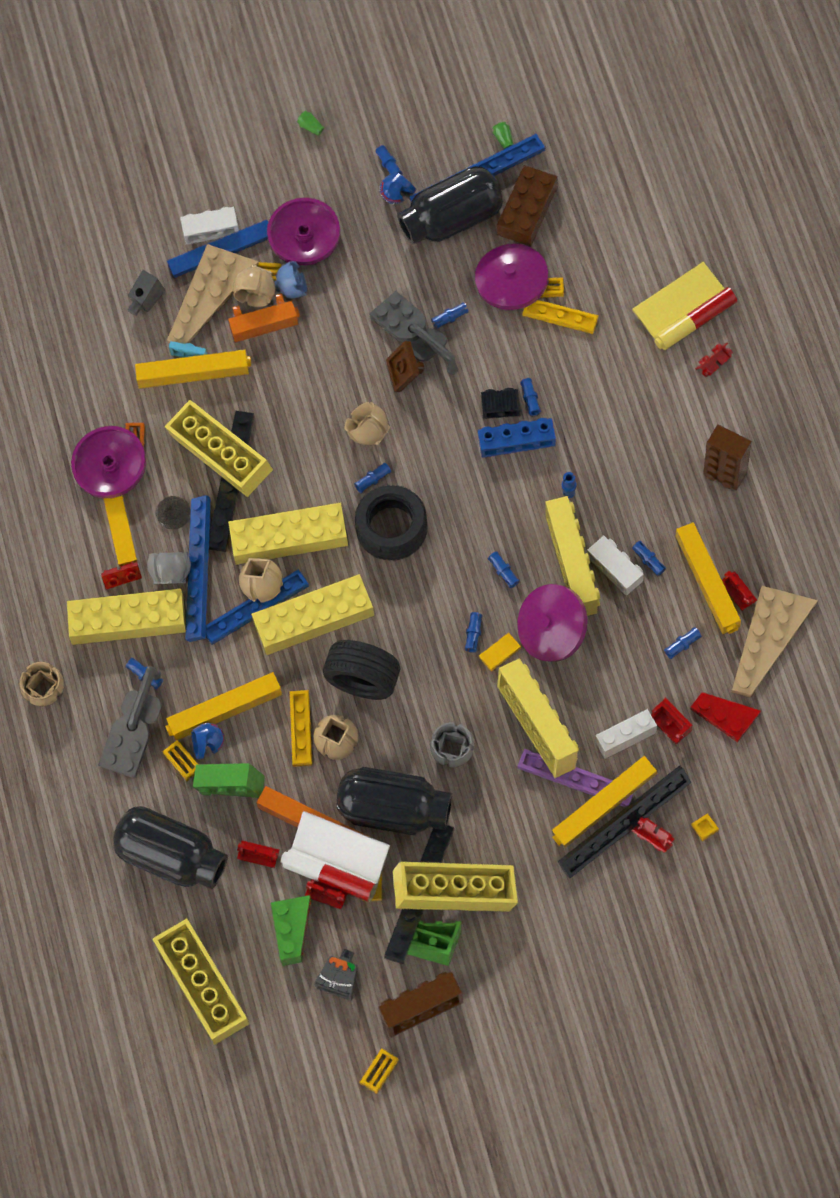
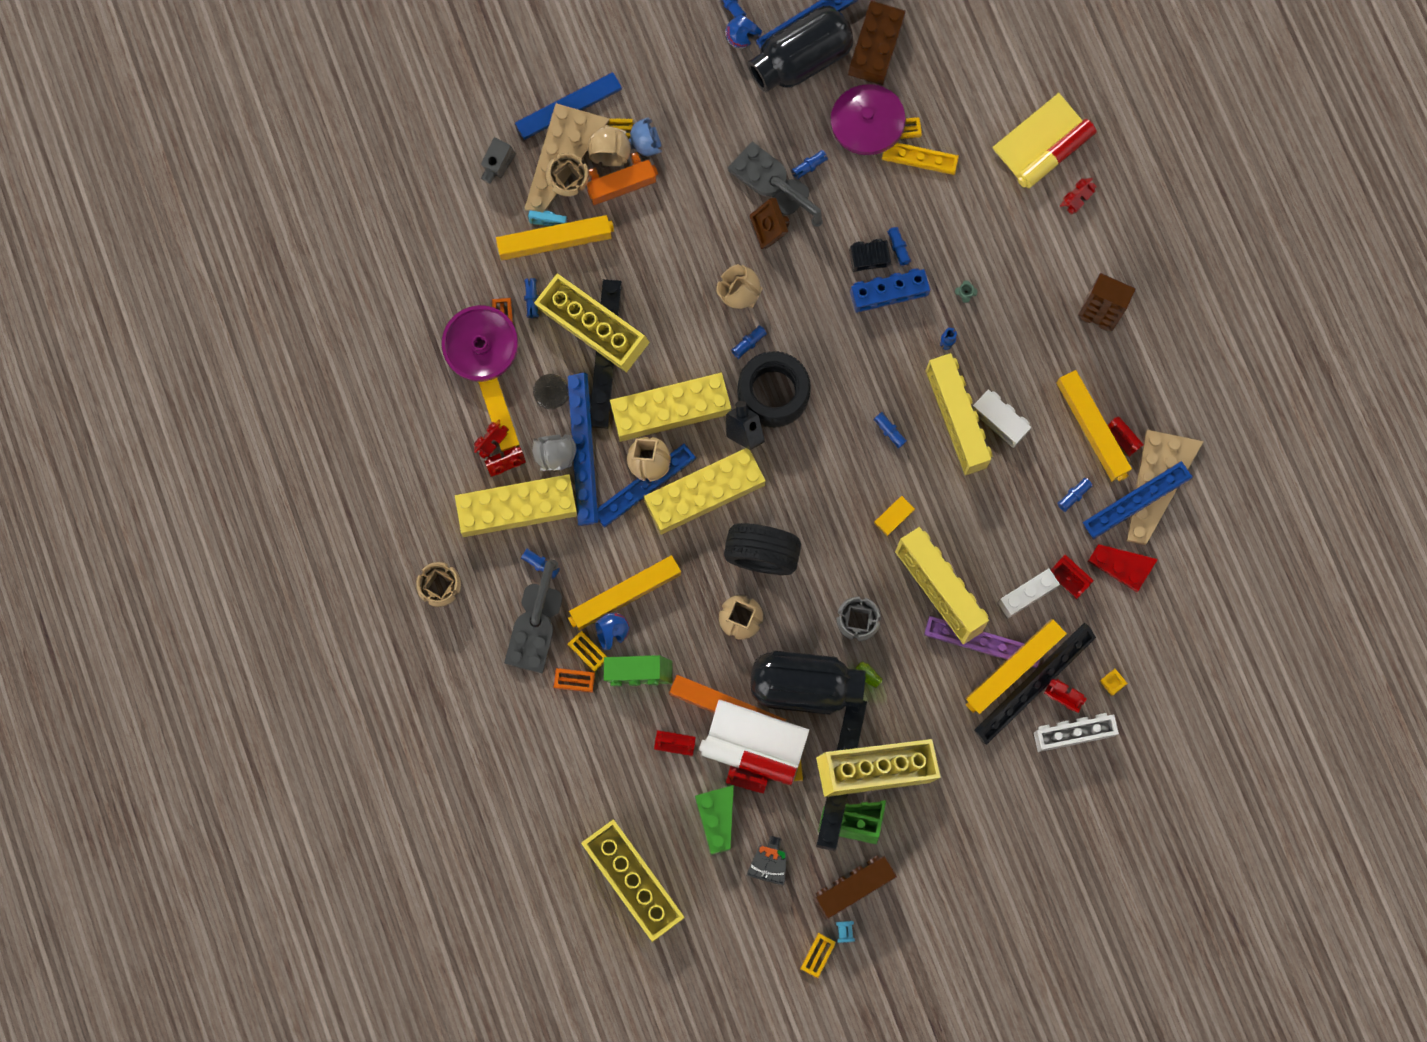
camera: 15 degrees left, 10 degrees up
(103, 557) = (485, 444): none -> red hinge
(164, 418) = (530, 297): none -> blue pin
(168, 848) = (586, 748): black piece -> none
(181, 791) = (573, 680): none -> orange tile
(205, 298) = (575, 164): none -> tan piece
(209, 225) = (554, 81): white brick -> none
(300, 728) = (703, 609): yellow tile -> none
(303, 231) = (652, 83): magenta dish -> none
(357, 554) = (744, 426): none -> black torso
(408, 1049) = (845, 931): none -> medium azure bush
(459, 803) = (872, 677): none -> clear neon green cone
(473, 632) = (866, 497): blue pin -> none
(552, 623) = (946, 485): magenta dish -> none
(593, 438) = (966, 296): none -> sand green plate
(649, 558) = (1033, 408): blue pin -> none
(660, 871) = (1075, 733): none -> white brick
(744, 651) = (1137, 500): none -> blue tile

